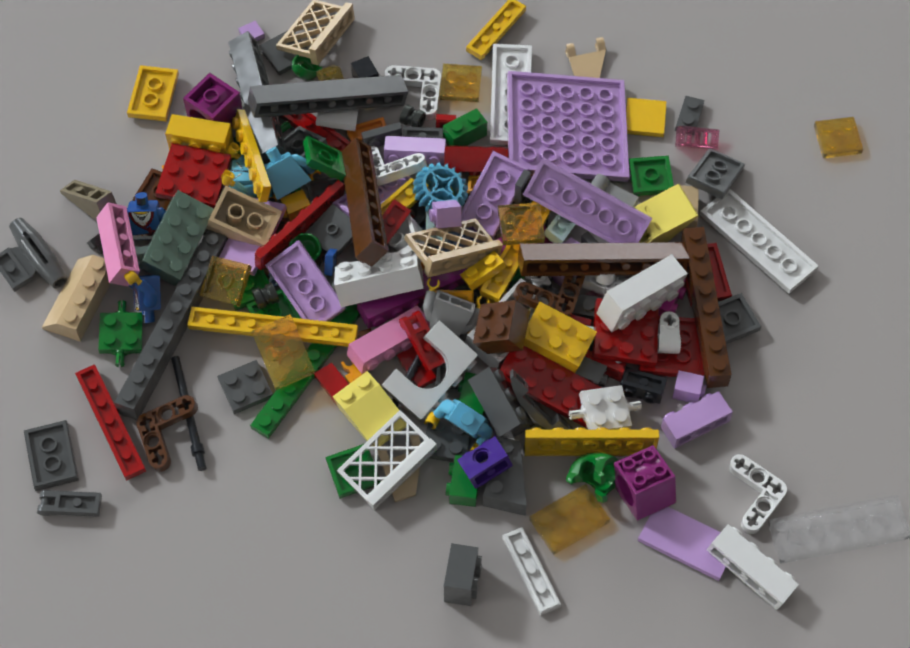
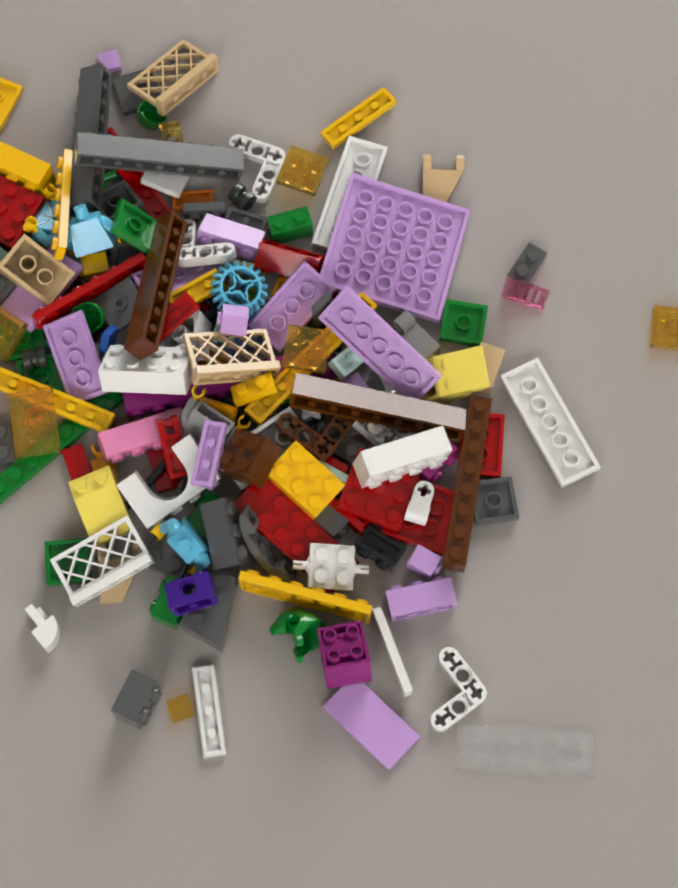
camera: 15 degrees right, 10 degrees up
(213, 100) = (42, 135): magenta brick -> none
(352, 535) = (47, 631): none -> white brick
(363, 68) = (208, 133): black brick -> none
(442, 119) = (271, 209): red tile -> none
(464, 332) = (209, 454): none -> lavender plate
(503, 575) = (180, 708): none -> clear yellow tile
(569, 519) = (262, 668): clear yellow plate -> none
(645, 117) = (480, 256): yellow tile -> none
(687, 473) = (392, 651): none -> white tile
(715, 173) = (529, 338): dark grey tile -> none
(752, 566) = (423, 768): white brick -> none

